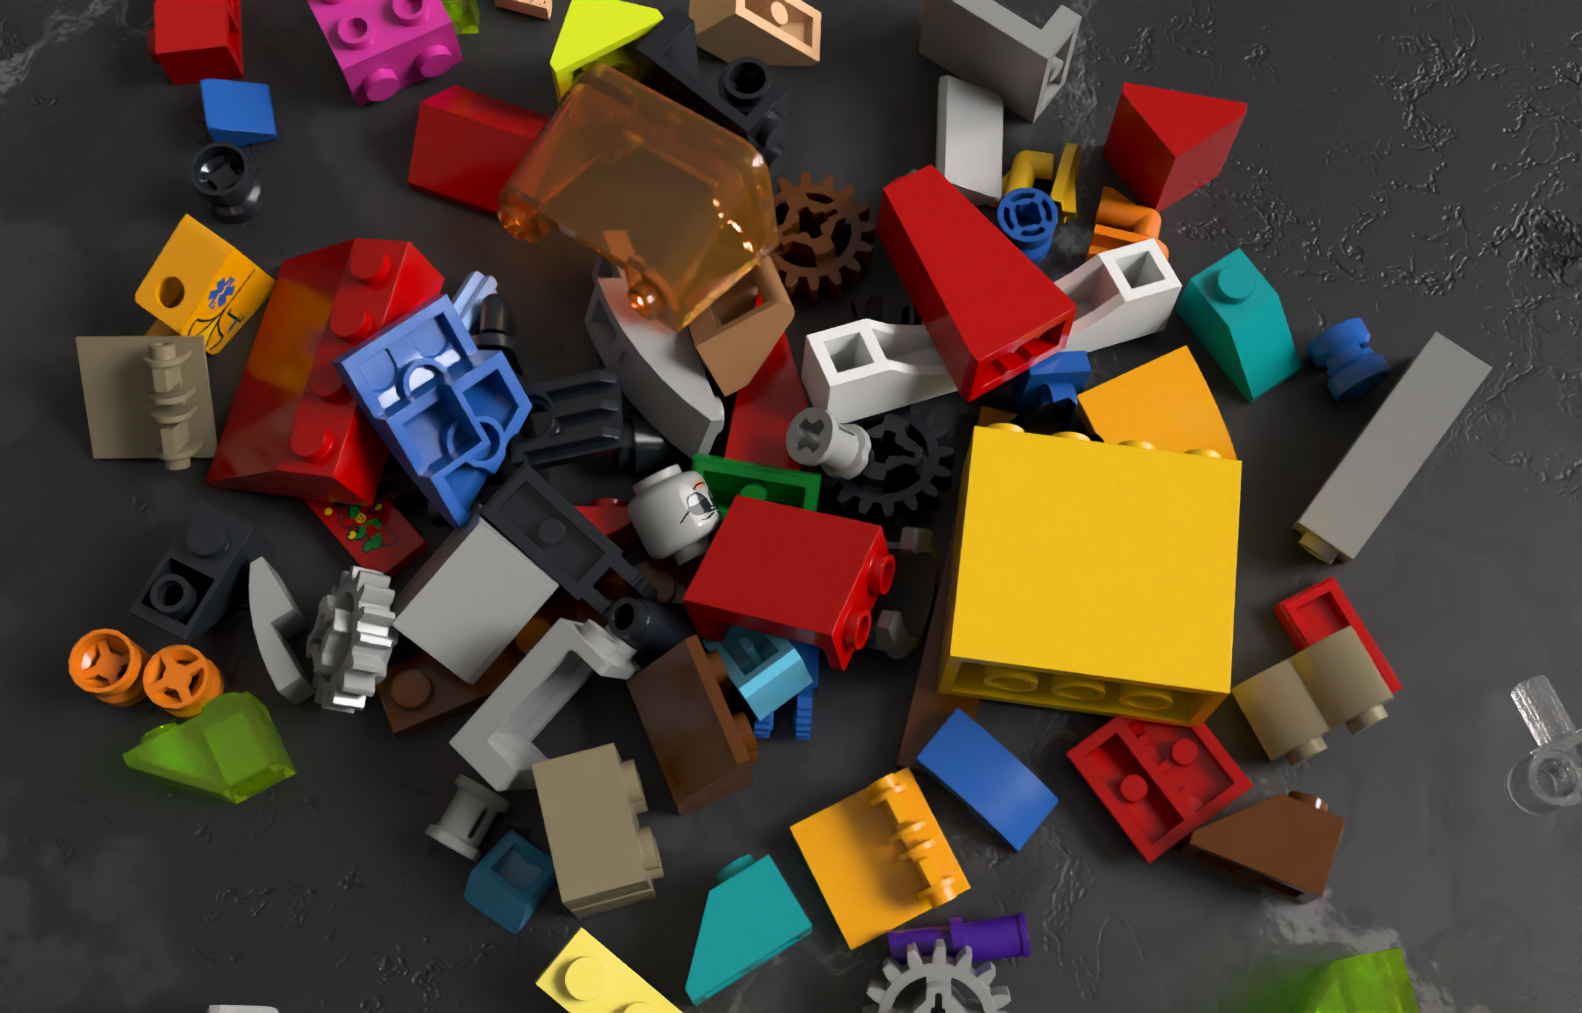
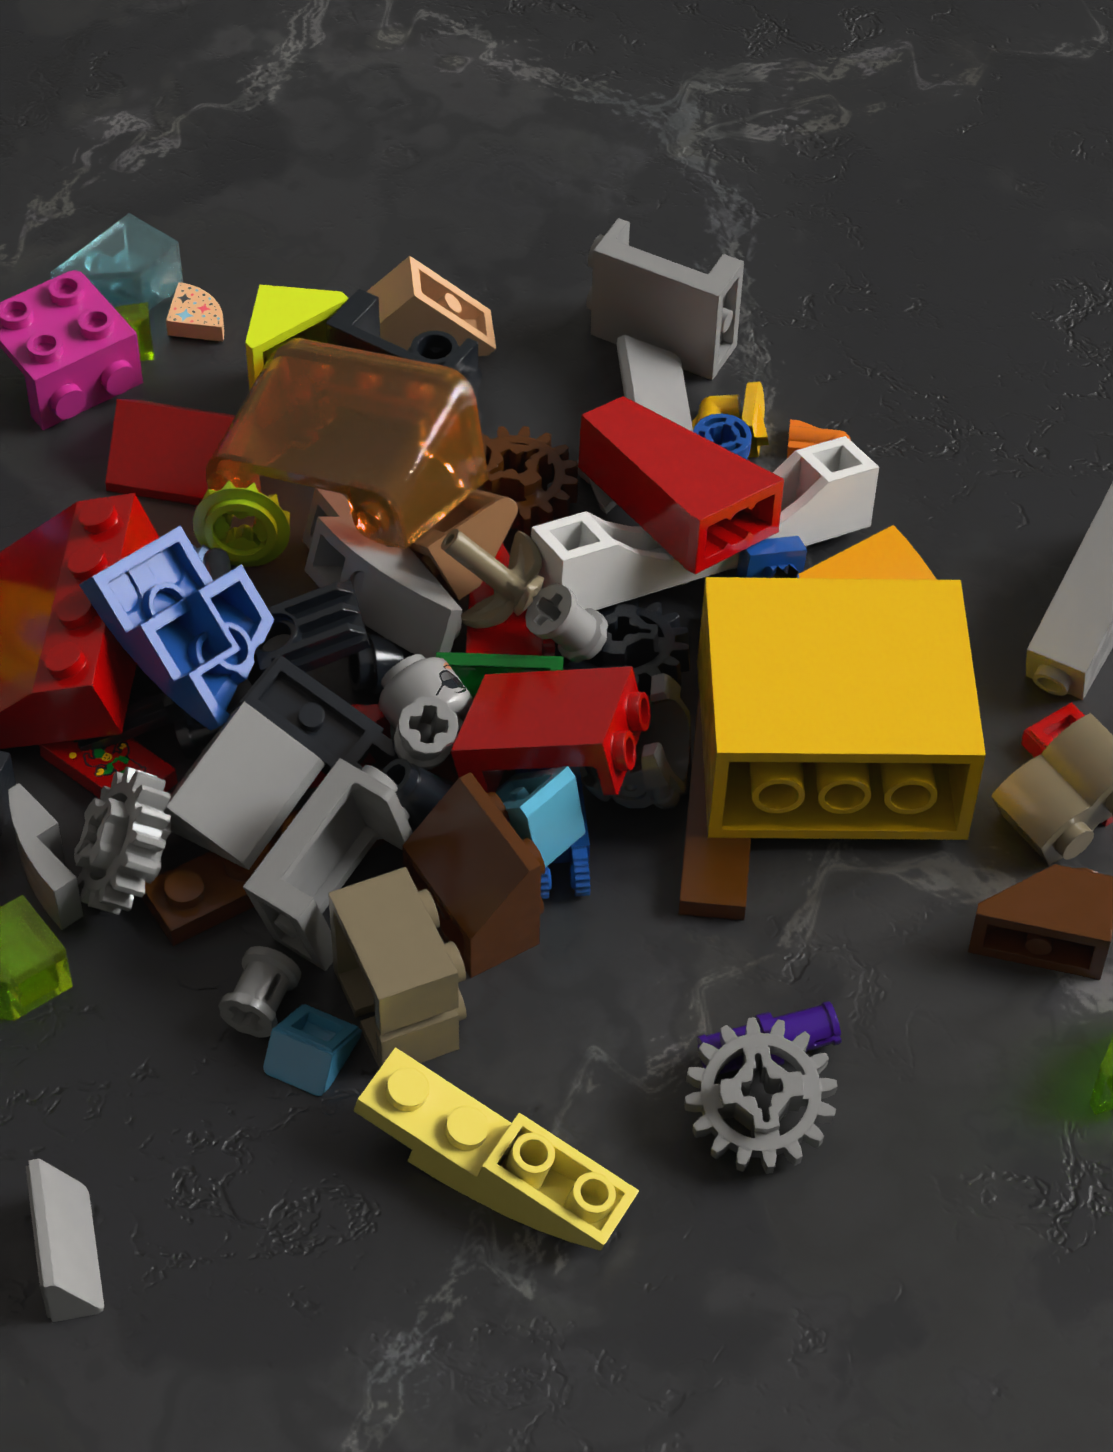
camera: 10 degrees left, 20 degrees down
(542, 266) = (243, 544): none -> lime gear
(673, 589) = (443, 726): none -> light grey bush
(743, 926) = (559, 1045): teal slope -> none
(771, 397) = (512, 586): none -> dark tan plant
(879, 858) = (677, 978): light orange hinge -> none
(987, 780) = (782, 907): blue slope -> none
(1158, 779) = (932, 882): red slope -> none
(1169, 141) = (846, 365): red slope -> none
(1241, 324) = (941, 509): teal slope -> none
(1350, 363) = (1047, 525): blue wheel -> none

